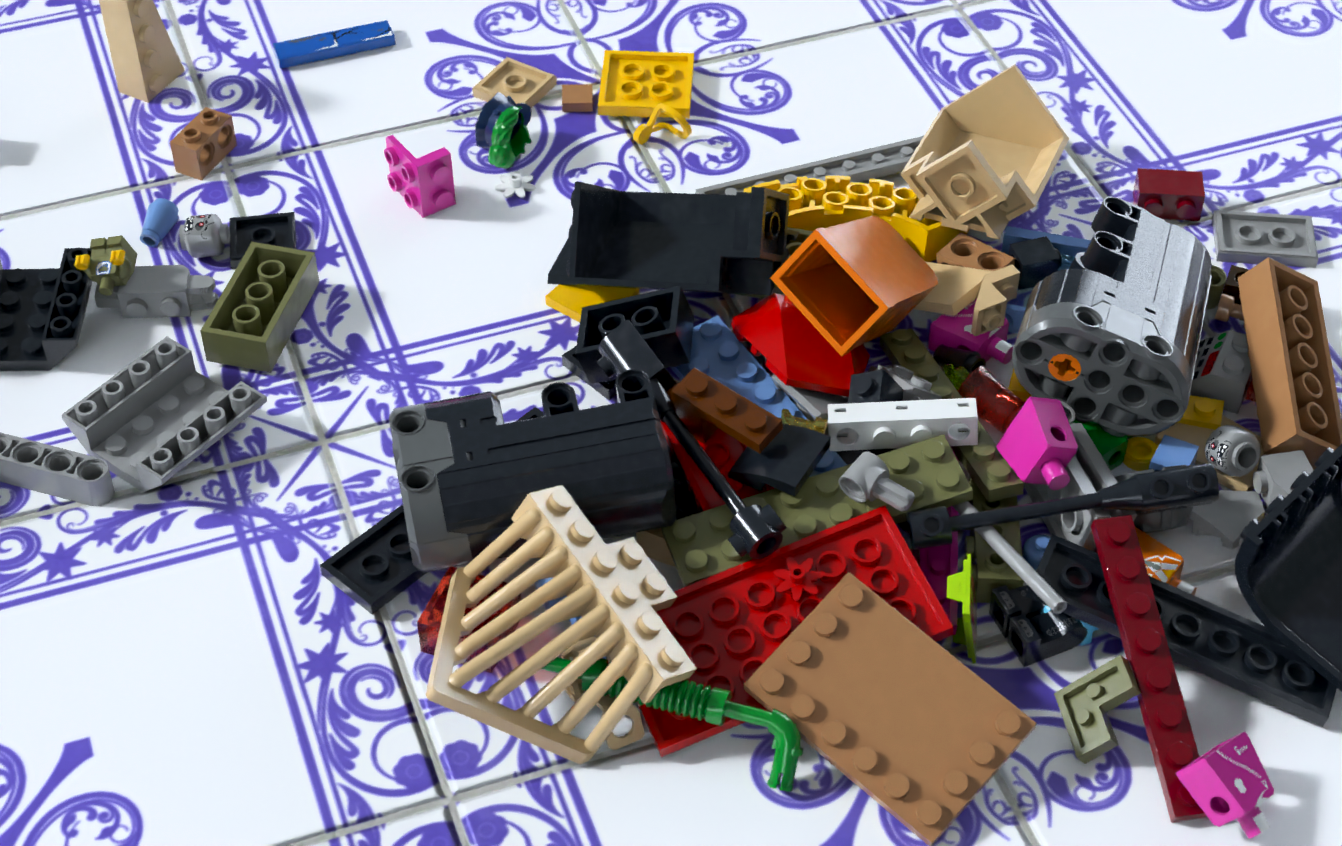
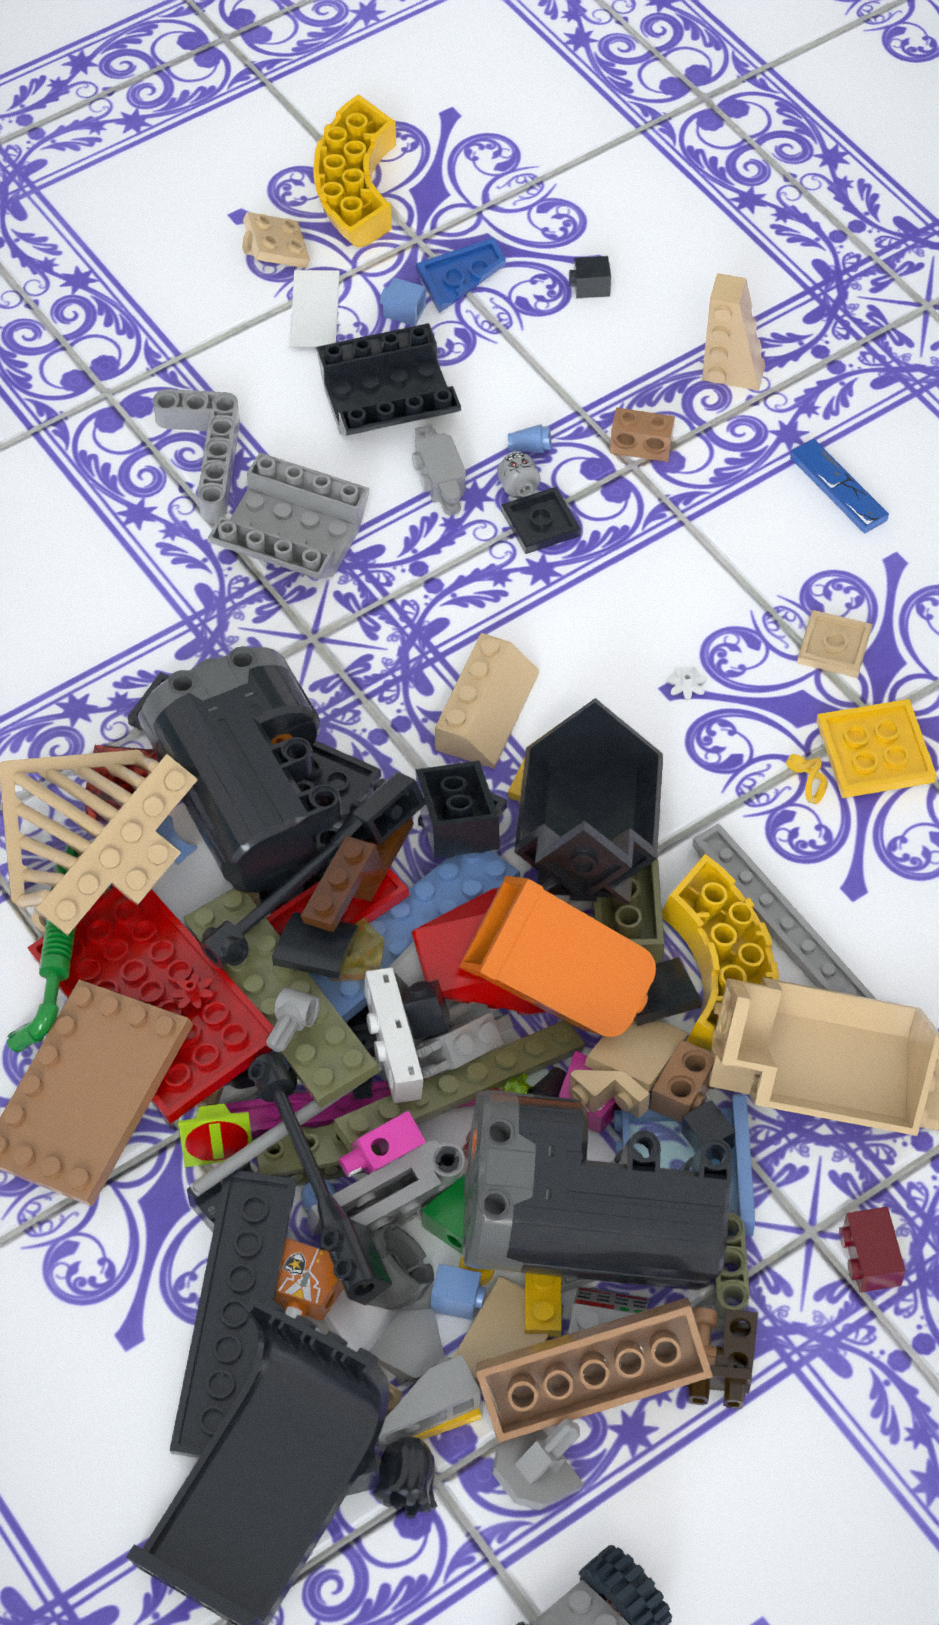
camera: 75 degrees right, 10 degrees up
(110, 262) = (435, 420): olive piece -> none
(260, 307) = (438, 541): olive brick -> none
(422, 181) = (639, 601): dark pink bracket -> none
(477, 321) = (485, 702): none -> tan slope
(503, 130) = (738, 647): piece -> none
(577, 98) = (835, 696): medium nougat tile -> none
(1086, 706) = (143, 1252): olive plate -> none
(1149, 659) = (174, 1284): dark red plate -> none
(1230, 784) = (66, 1366): dark pink torso -> none
(1232, 450) = (471, 1333): light grey head -> none
(1256, 236) = (846, 1357): light grey tile -> none

